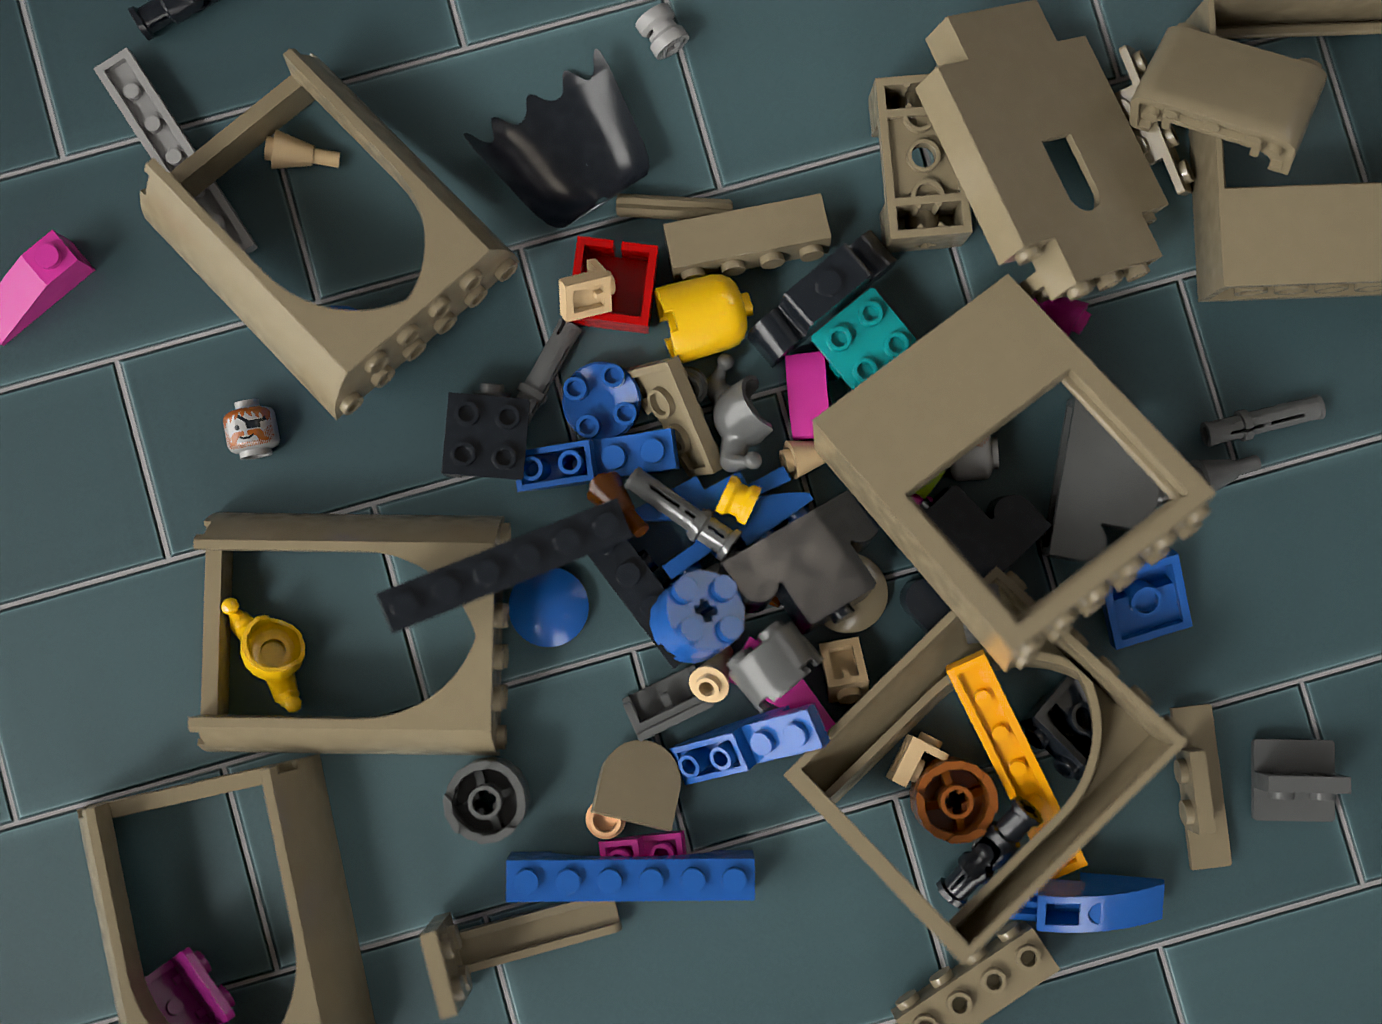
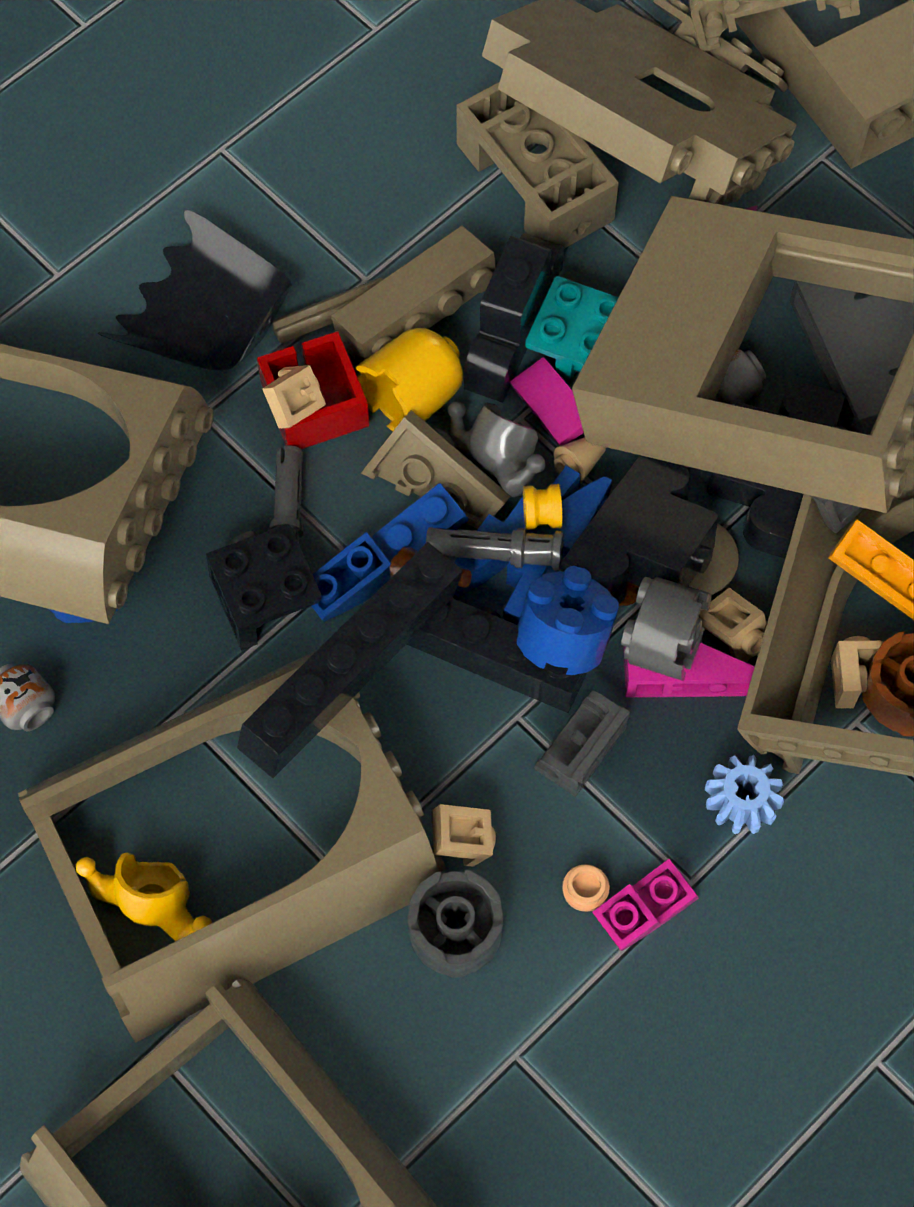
camera: 25 degrees left, 20 degrees down
(456, 953) = (524, 1091): dark tan bracket -> none
(530, 733) = (463, 833): none -> tan bracket
(549, 608) = (413, 715): blue dish -> none
(580, 878) = (607, 941): blue arch -> none
(601, 401) = (356, 501): blue dish -> none
(639, 785) = (601, 833): dark tan tile -> none
(662, 31) = (237, 172): light grey wheel -> none
(711, 679) = (614, 685): tan cone -> none
(749, 742) = (686, 727): blue slope -> none
(781, 818) = (749, 811): none -> light blue gear

